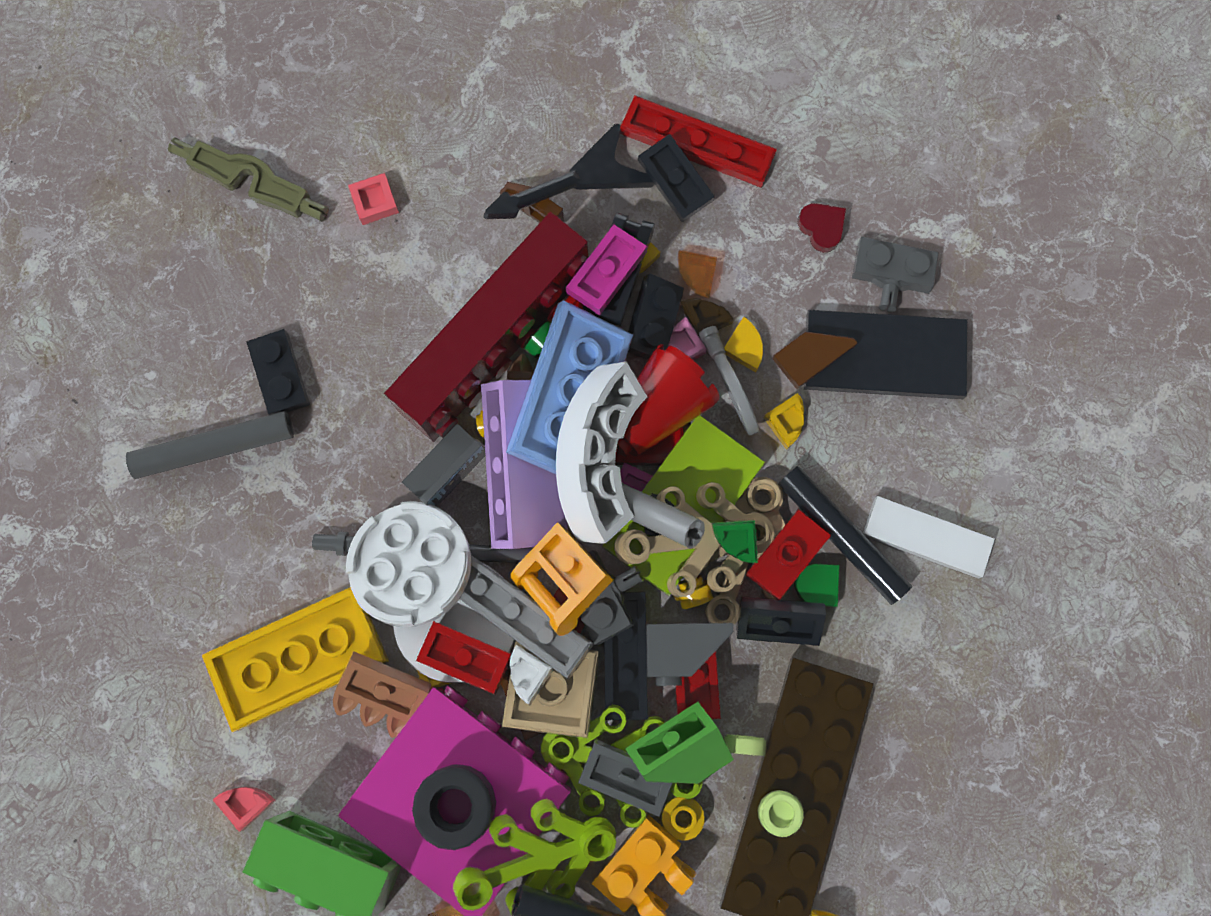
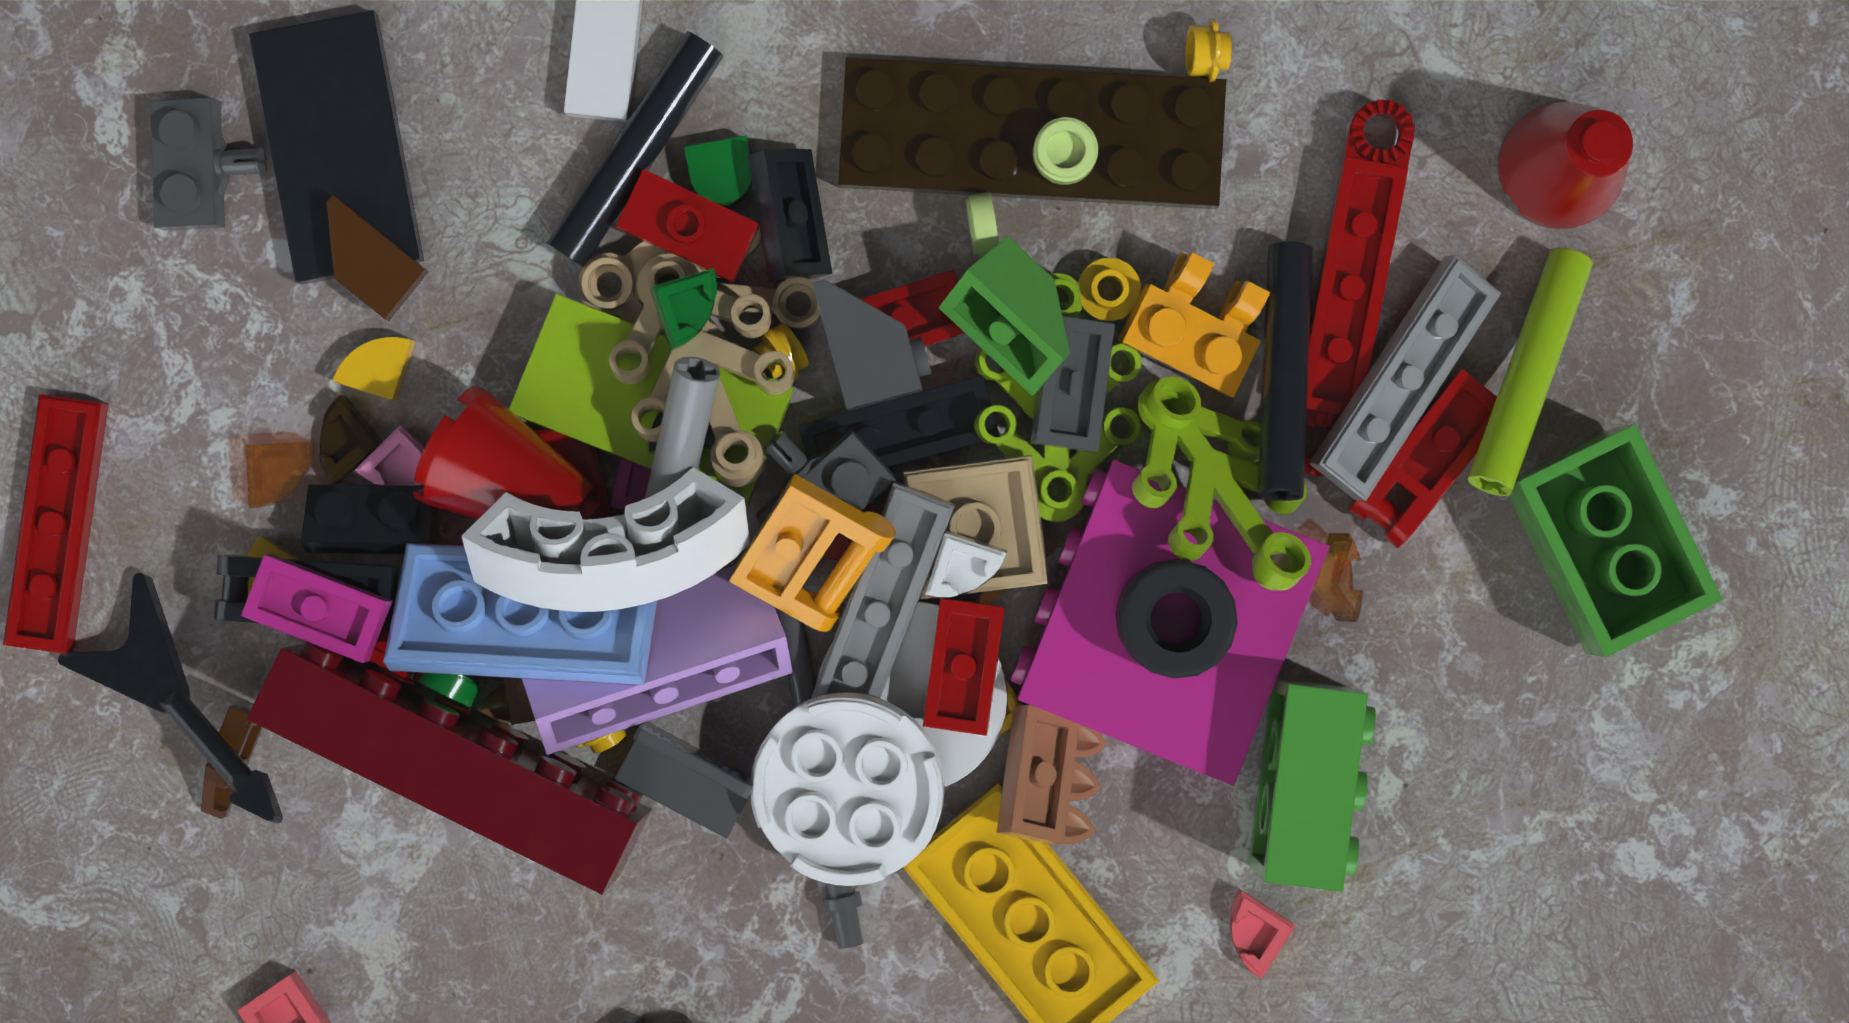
camera: 110 degrees left, 10 degrees up
(675, 178) = (129, 542): black plate -> none
(711, 338) = (397, 409): light grey piece -> none
(787, 420) = (480, 274): yellow tile -> none
(823, 225) = (149, 291): dark red tile -> none

